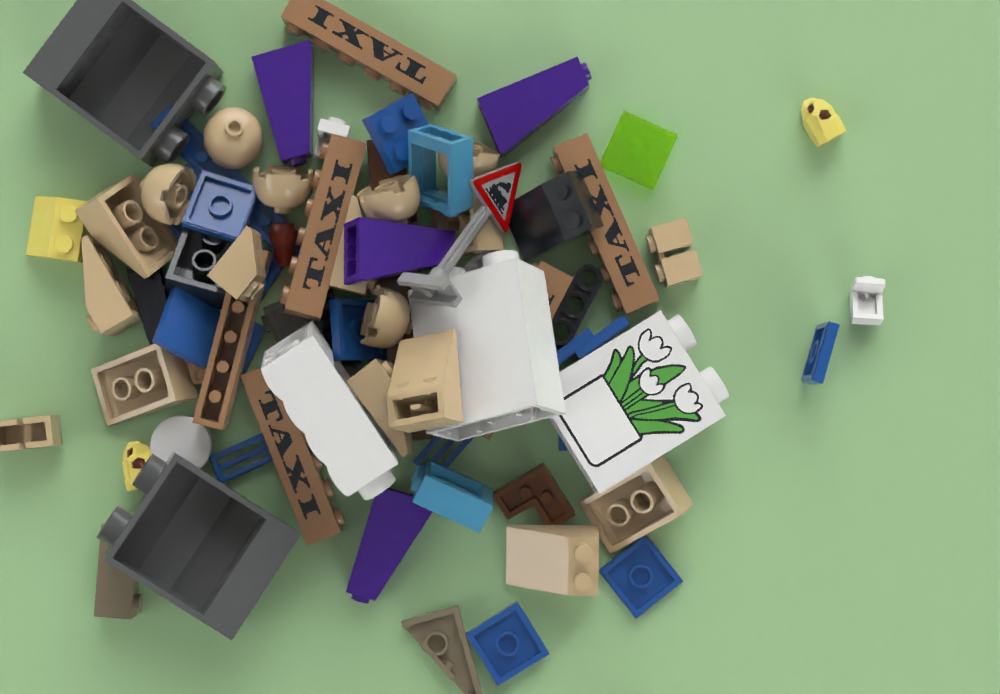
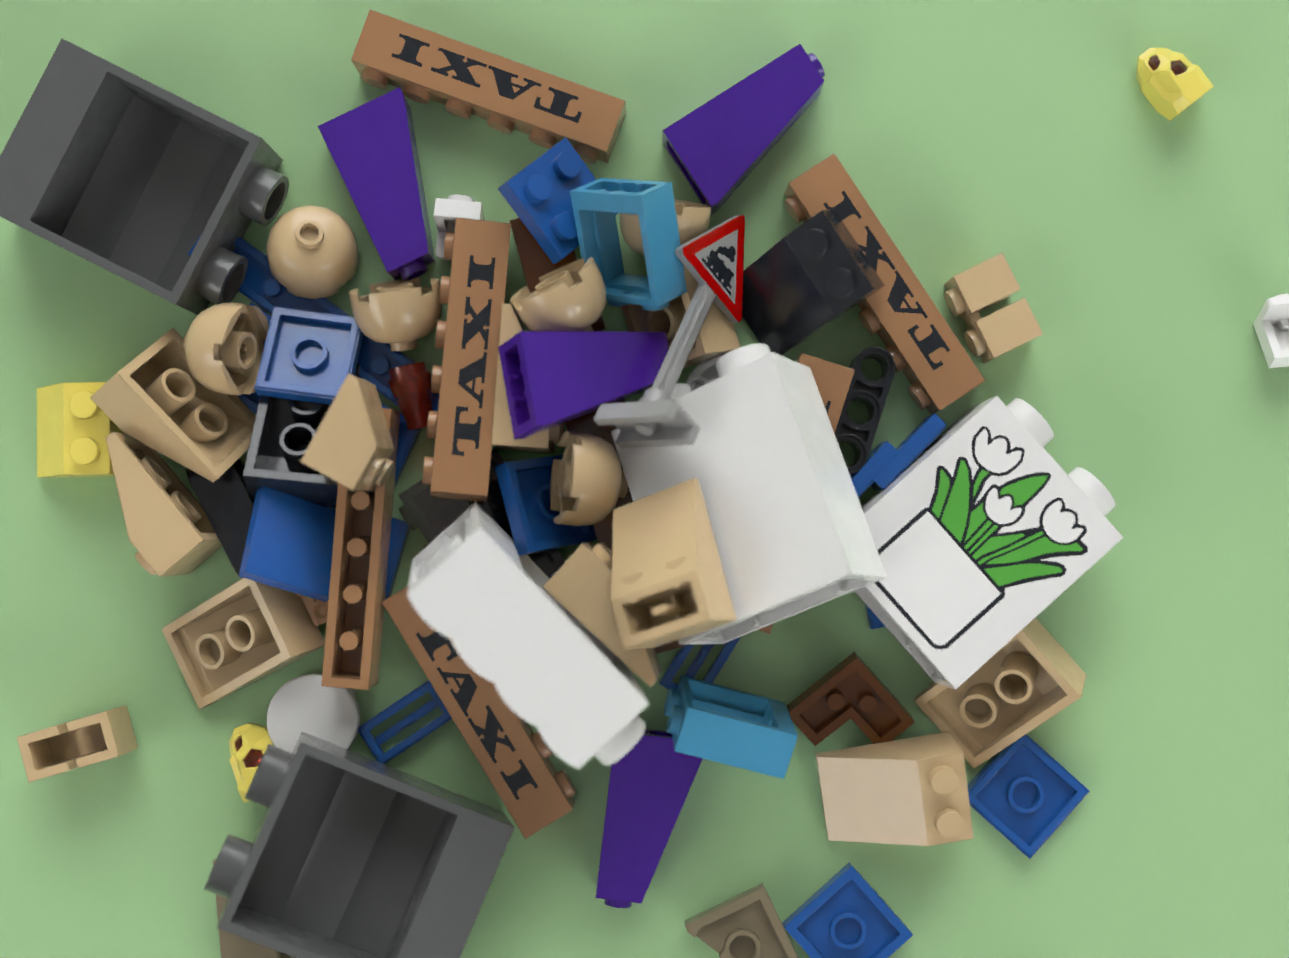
camera: 10 degrees left, 0 degrees up
(638, 150) = (910, 169): clear neon green tile -> none
(820, 353) = (1238, 419): blue tile -> none

